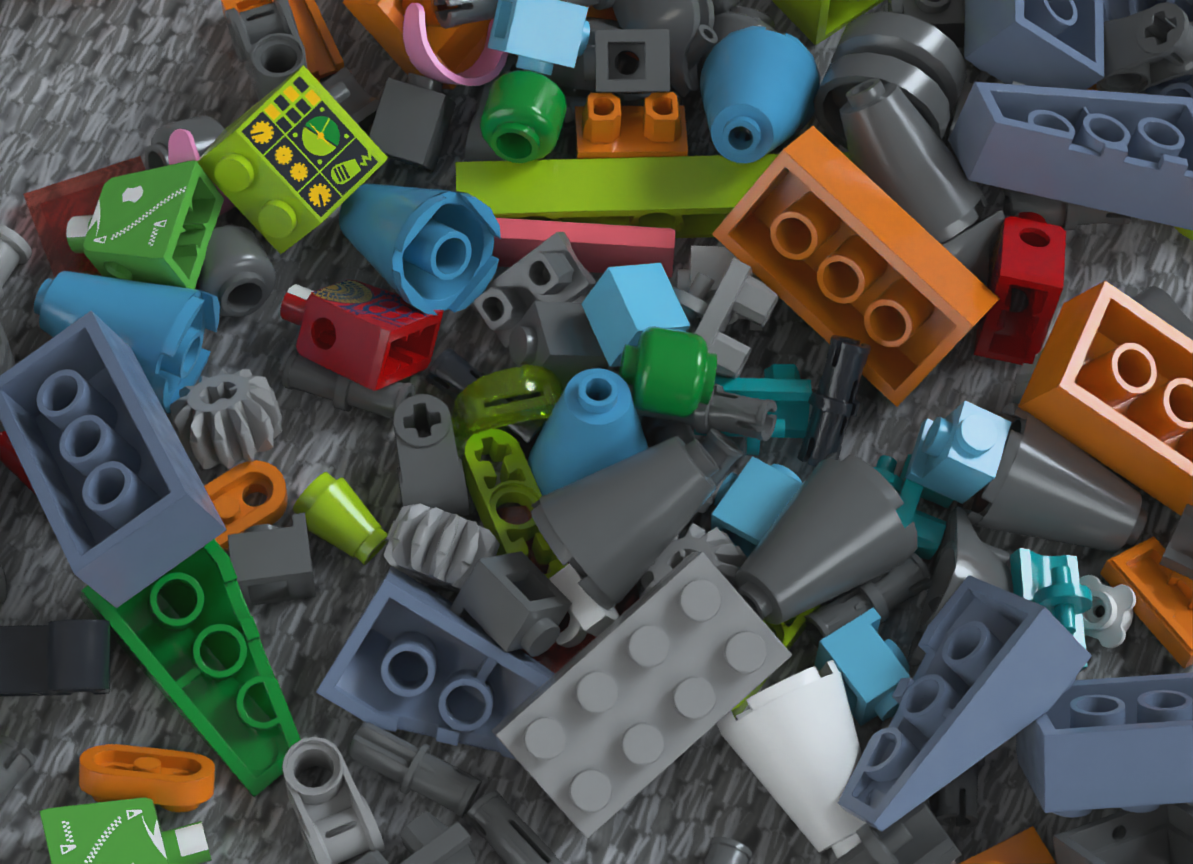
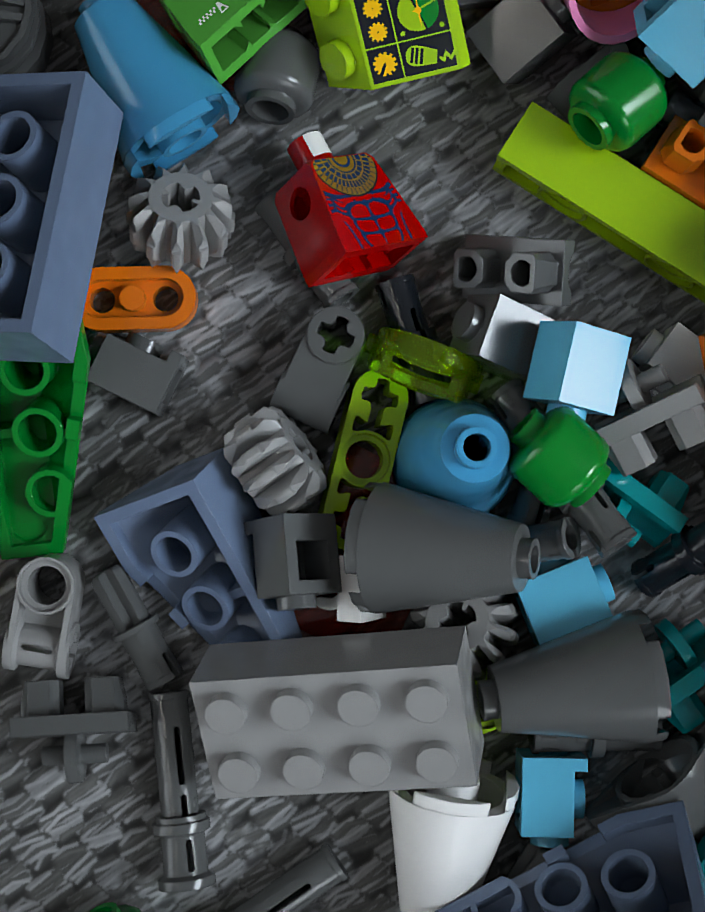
camera: 35 degrees right, 25 degrees up
(341, 518) = (220, 368): lime cone -> none
(424, 242) = (447, 165): dark azure cone -> none
(593, 244) = (591, 250): coral tile -> none

